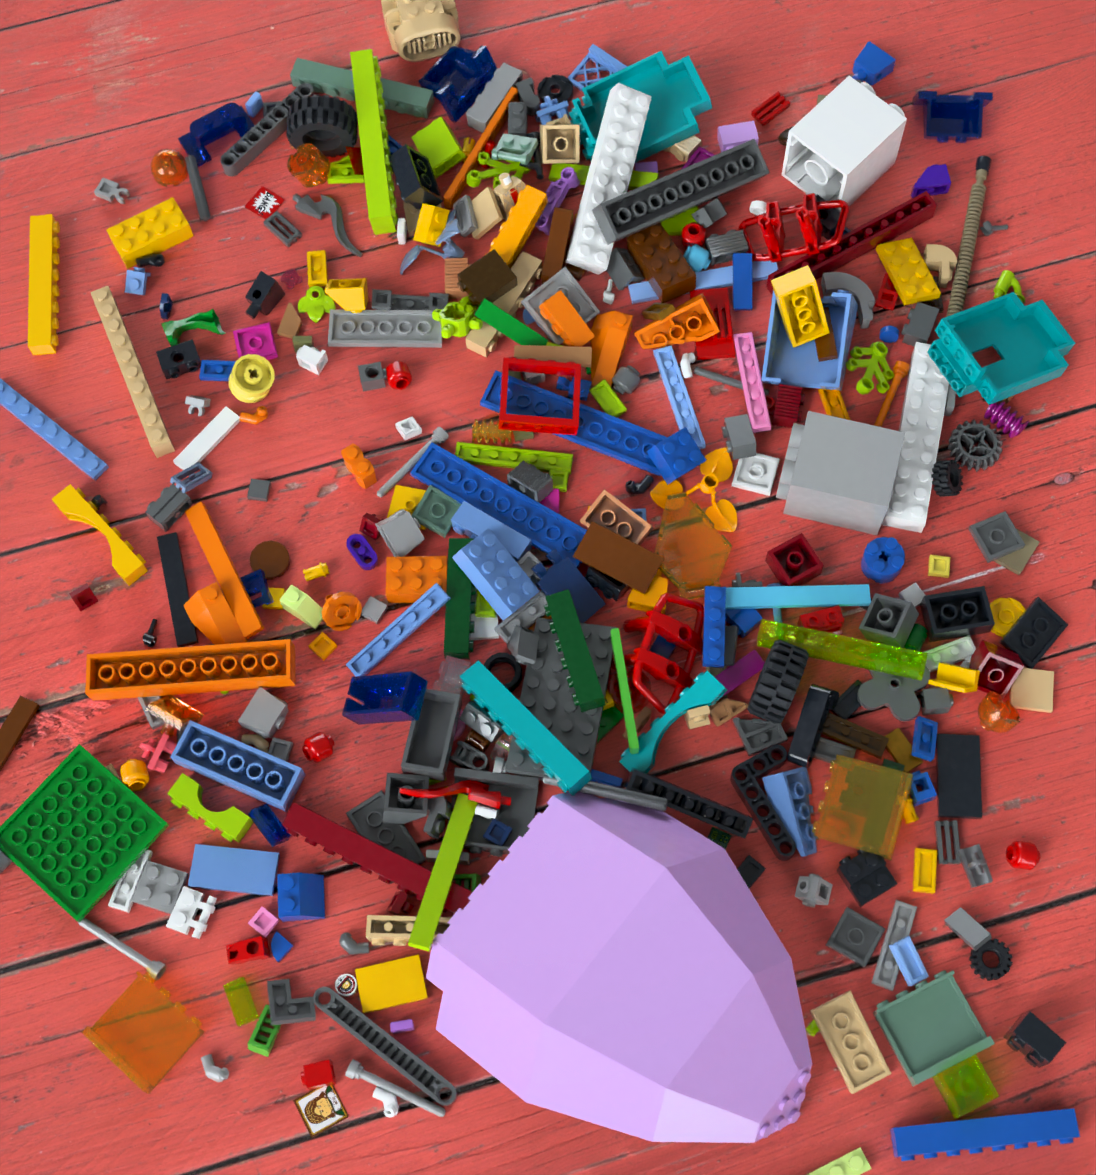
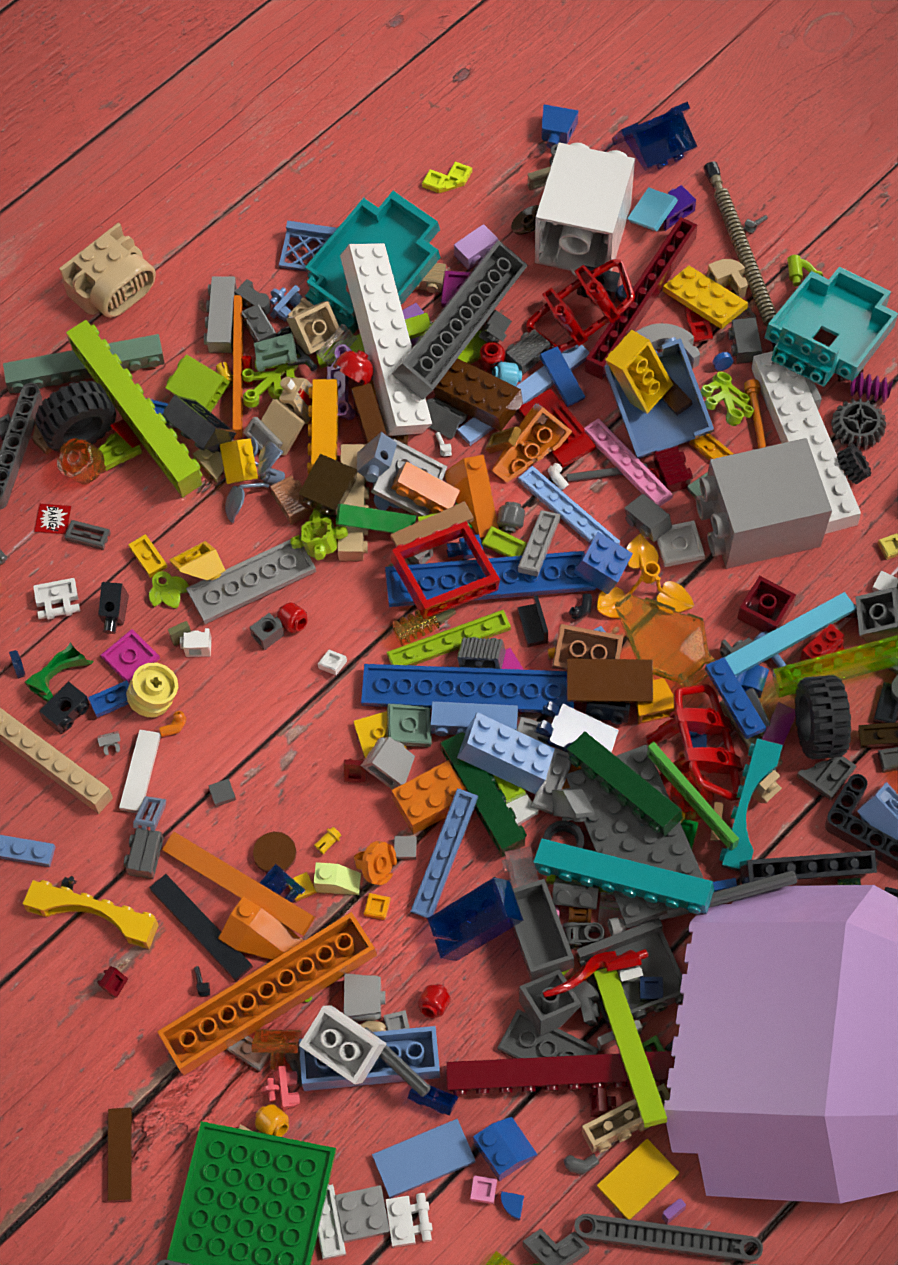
camera: 30 degrees left, 5 degrees down
(189, 795) = (394, 1116): lime arch -> none
(214, 743) = (342, 1044): none -> white brick
(227, 263) = (54, 593): none -> white plate
(248, 950) = (485, 1224): red leg -> none
(250, 779) = (403, 1070): none -> dark grey axle
(288, 274) = (127, 572): clear pink plate -> none
(290, 323) = (153, 620): medium nougat tile -> none
(330, 206) = (121, 491): dark grey piece -> none
(346, 985) = (597, 1204): tile -> none
(359, 466) = (312, 721): orange brick -> none
(362, 553) = (361, 799): dark purple plate -> none
(387, 301) = (237, 553): dark grey slope -> none
(401, 231) = (209, 481): white tile -> none
(439, 435) = (366, 655): light grey piece -> none
(459, 78) = (176, 310): clear blue windscreen -> none
(532, 281) = (376, 457): none -> sand blue torso
(555, 82) = (271, 272): black tile -> none
(560, 479) = (507, 637): lime tile -> none
(568, 190) = (355, 366): none -> red cylinder
(583, 161) = (332, 339): none -> clear tile
(590, 478) = (533, 623): none -> black panel
(635, 413) = (539, 543): none -> light grey tile
(726, 709) = (787, 768): medium nougat tile -> none
(758, 72) = (441, 183): none -> neon yellow tile
(758, 207) = (535, 302): white tile -> none
(763, 108) = (493, 194): red tile -> none
(811, 724) = (871, 742): black beam -> none
(882, 560) = (841, 564): blue brick -> none
(908, 174) = (652, 209): none -> medium azure tile

